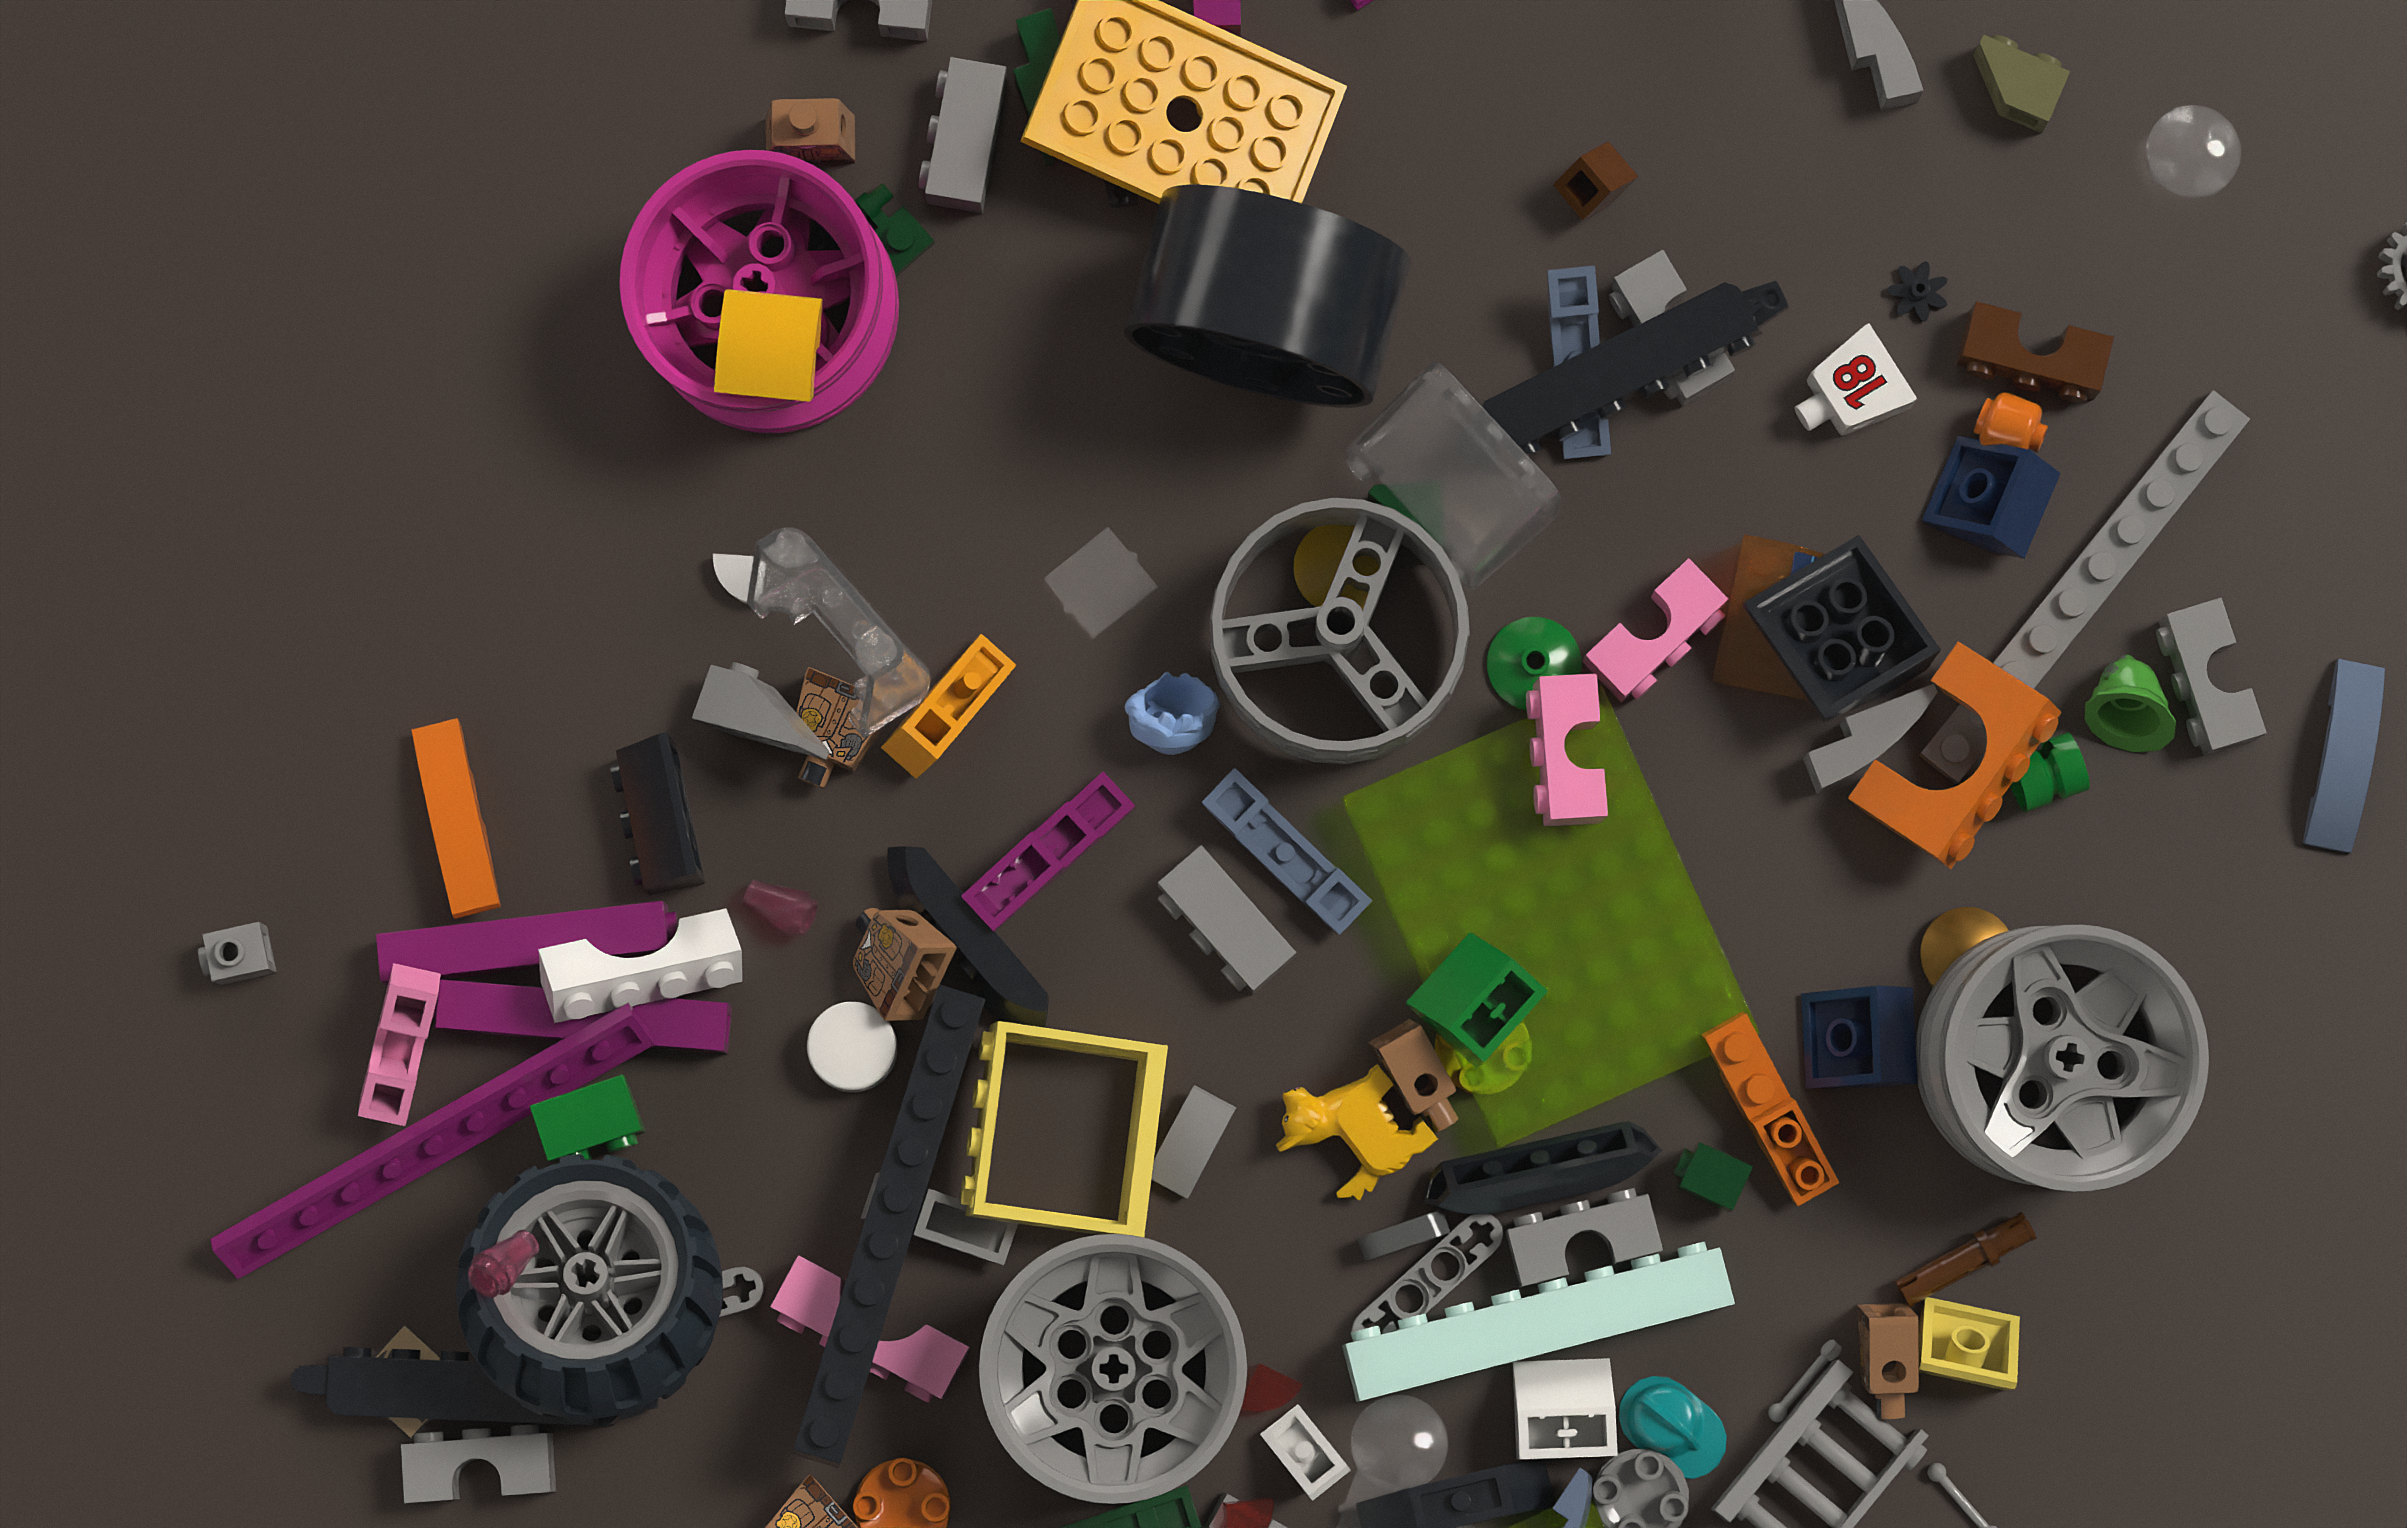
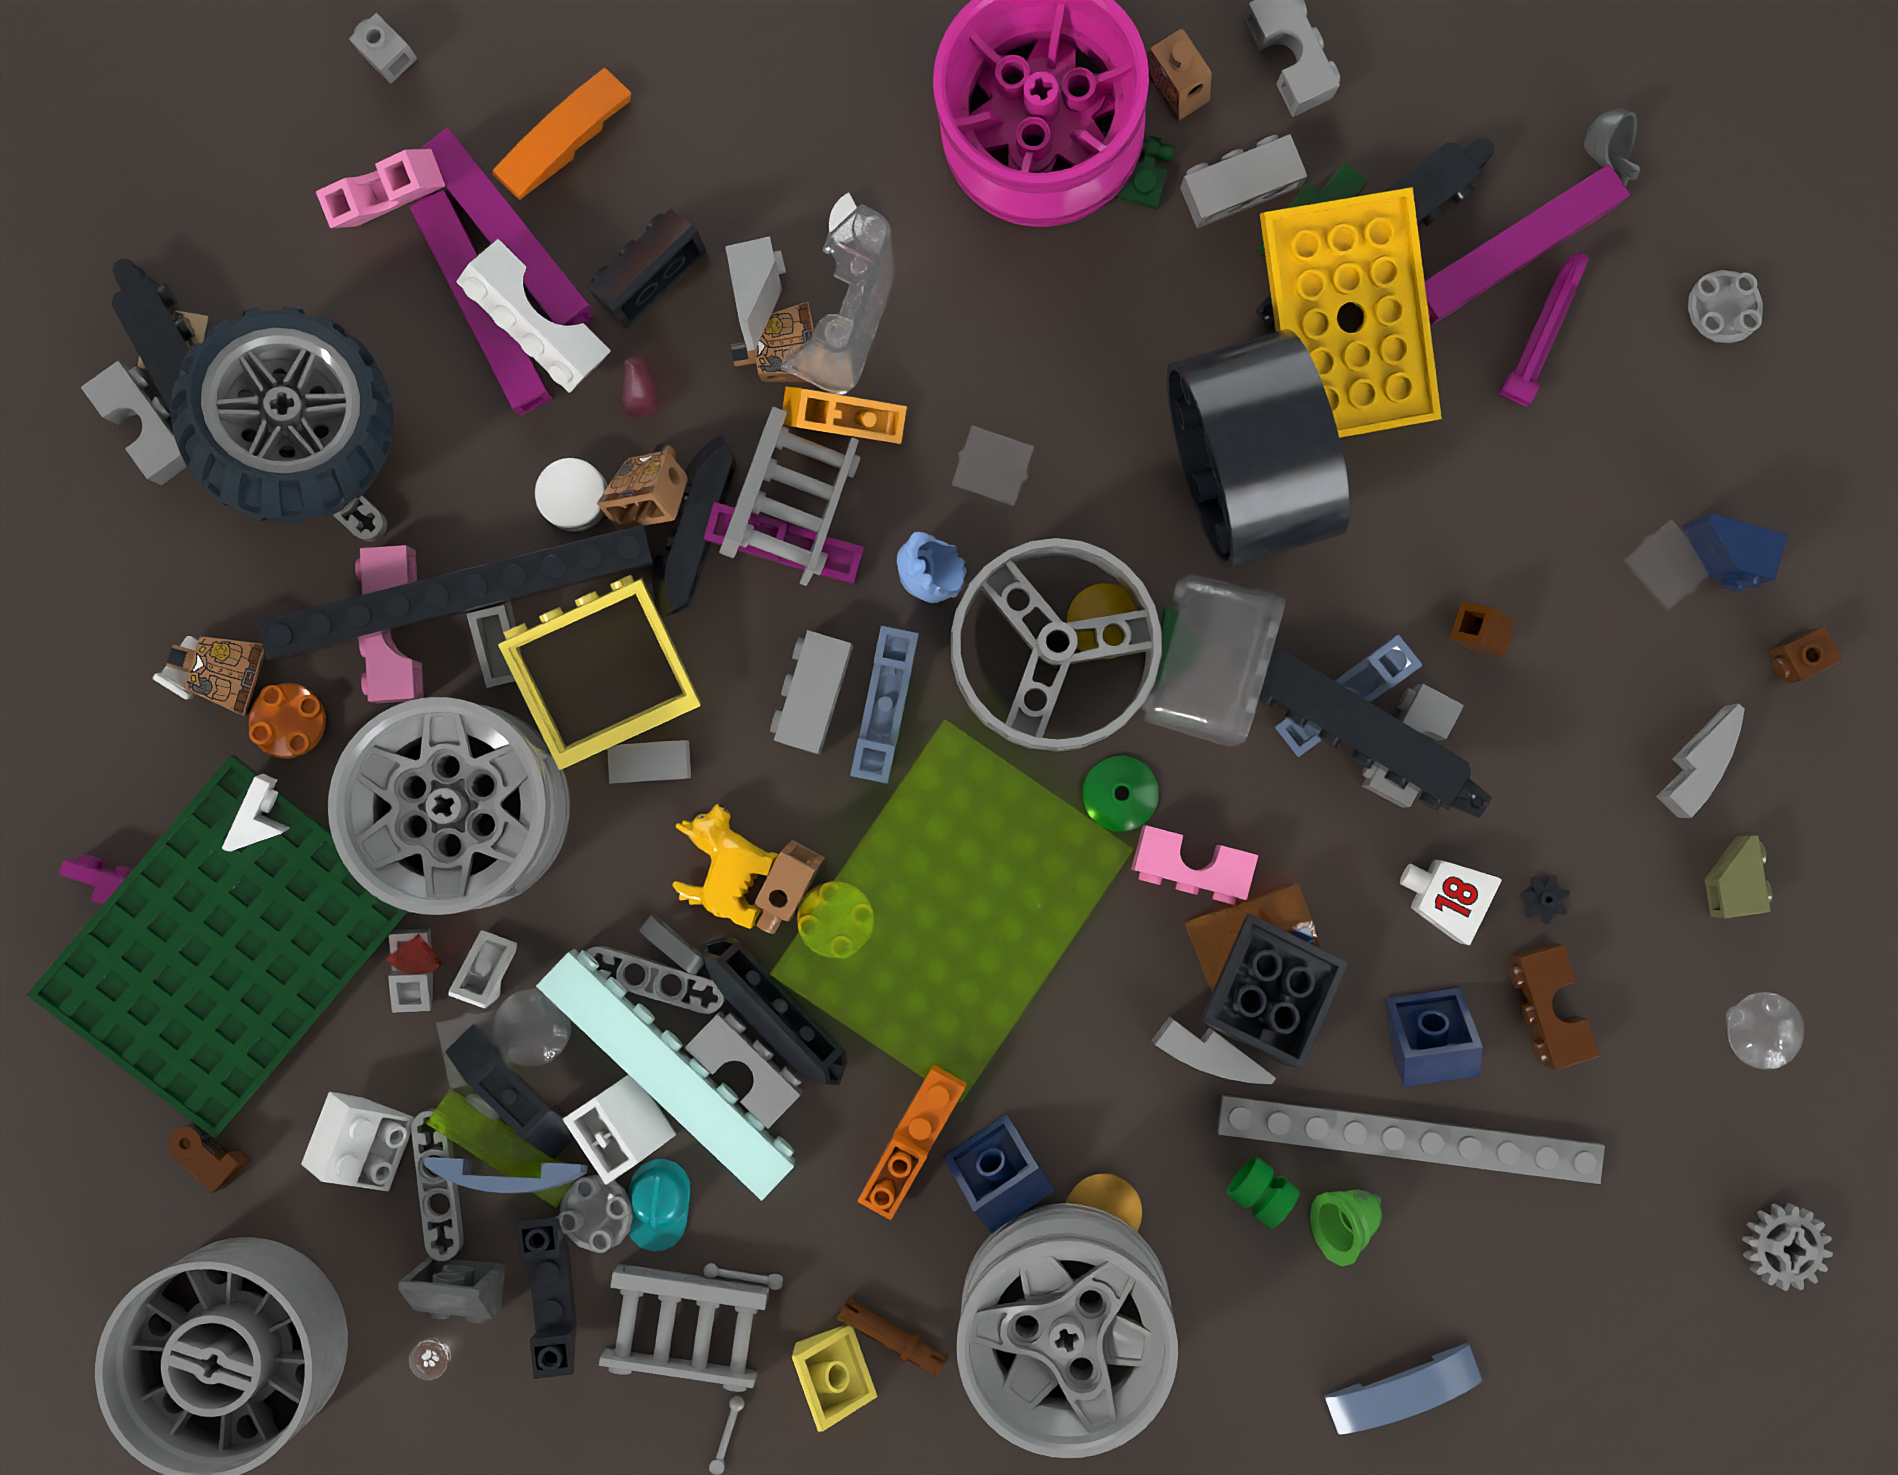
camera: 60 degrees right, 5 degrees up
(431, 1141) = (333, 254): magenta plate -> none
(499, 1267) = (240, 338): clear pink cone -> none
(589, 1120) = (403, 343): green slope -> none
(768, 345) = (1000, 118): yellow slope -> none
(988, 851) = (754, 500): none -> light grey fence
(1269, 1390) = (515, 918): clear red tile -> none
(1476, 998) = (857, 897): green slope -> none
(1565, 791) = (1042, 870): bright pink arch -> none
(1711, 1176) = (840, 1131): dark green brick -> none
(1888, 1335) = (793, 1325): medium nougat torso -> none
(1948, 819) = (1281, 1154): orange arch -> none
(2011, 422) = (1493, 1020): orange head -> none
(2217, 717) = (1375, 1286): light grey arch -> none

